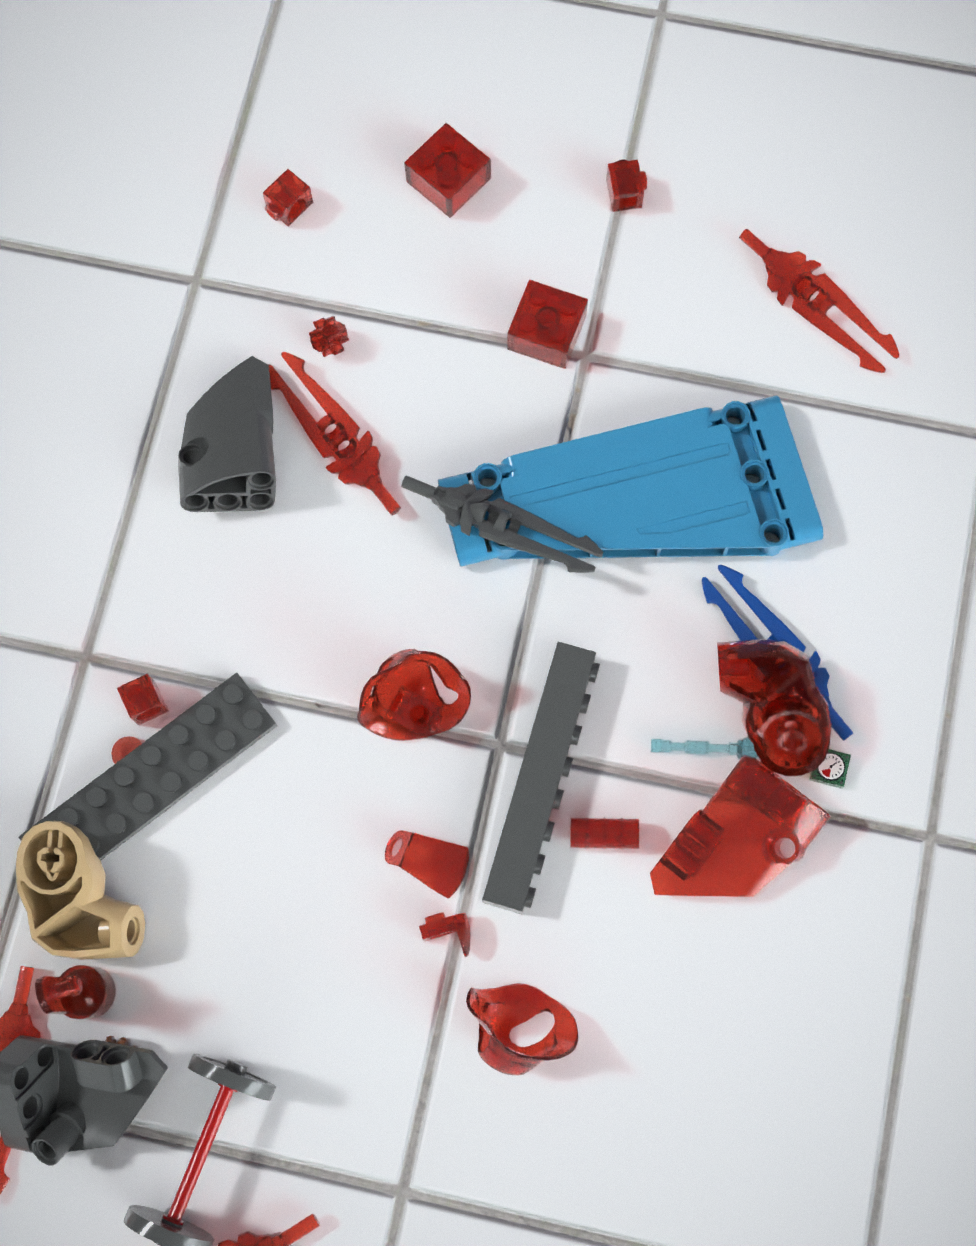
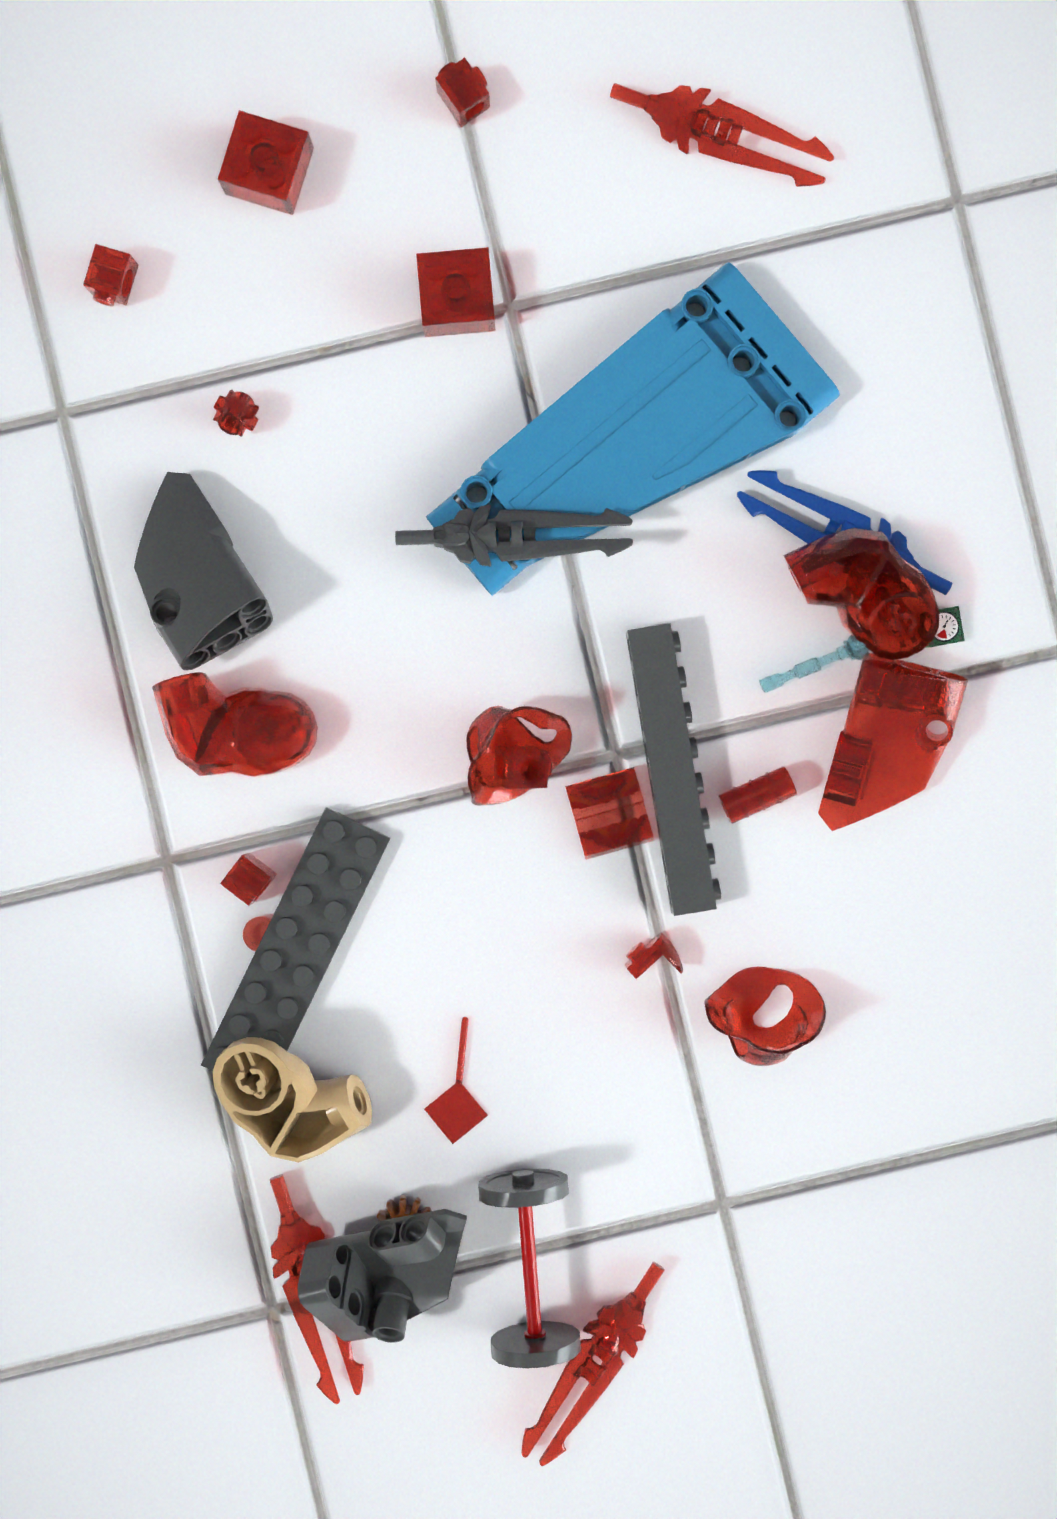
camera: 30 degrees left, 15 degrees up
(77, 993) = (338, 1182): clear red piece -> none
(193, 577) = (236, 732): none -> clear red piece
(212, 985) = (456, 1108): none -> clear red piece
(354, 463) = (332, 533): clear red sword -> none
(430, 861) = (603, 899): clear red piece -> none
(470, 790) = (609, 813): none -> clear red slope

